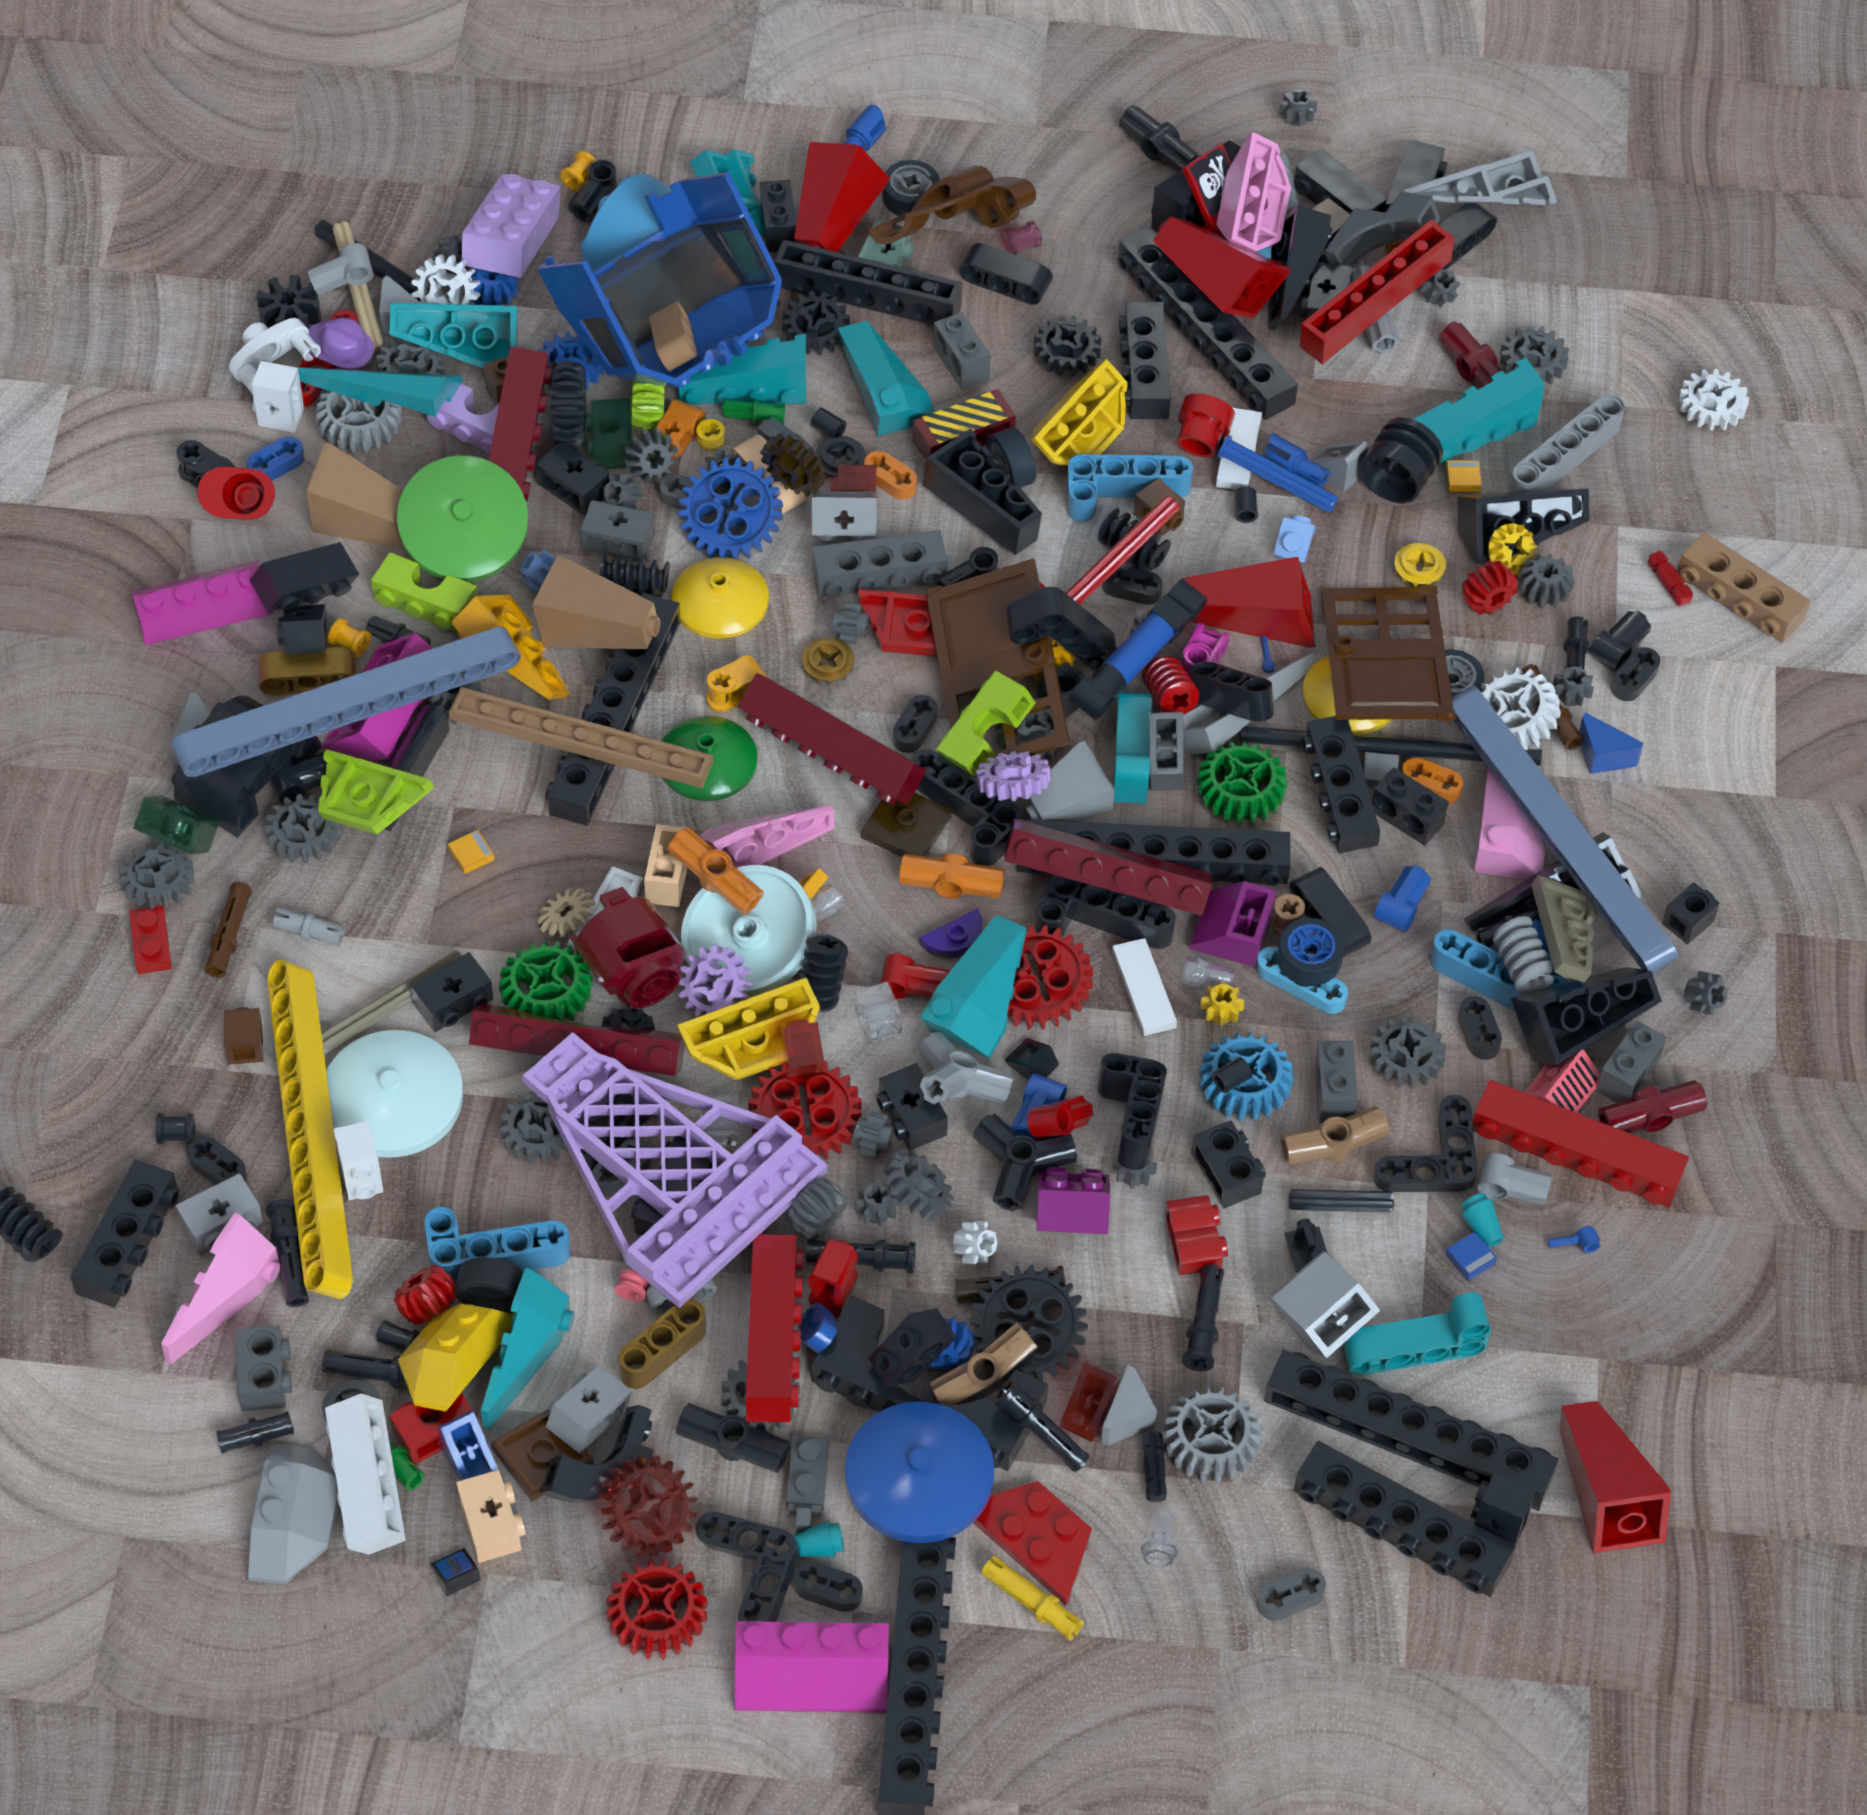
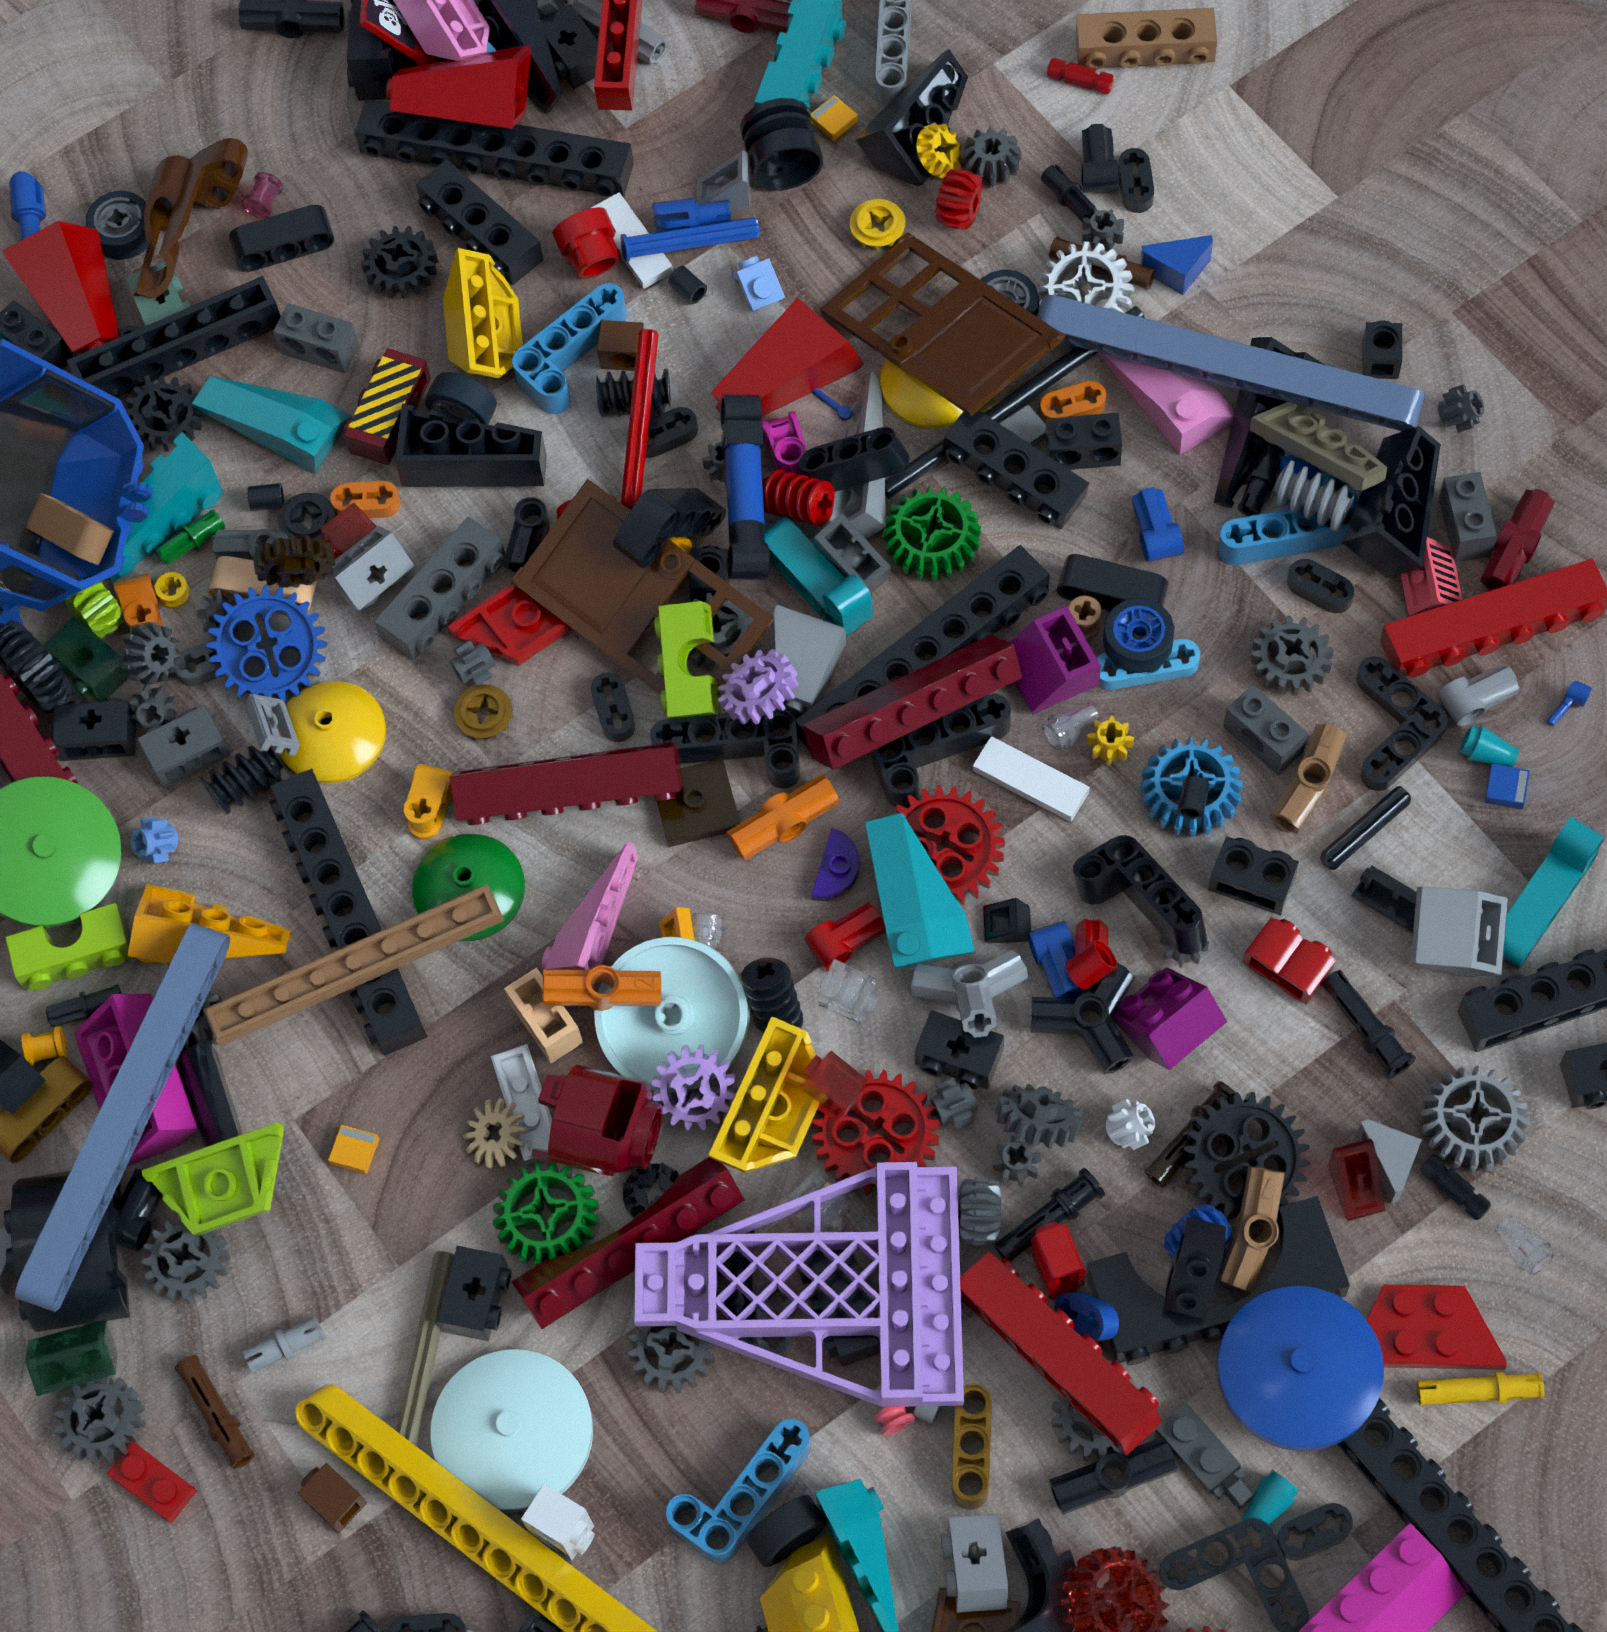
camera: 35 degrees left, 10 degrees up
(425, 1294) = (737, 1589): red gear -> none
(590, 611) = (250, 840): medium nougat slope -> none
(673, 566) = (266, 723): none -> light grey tile
(1030, 1414) = (1335, 1237): black pin -> none

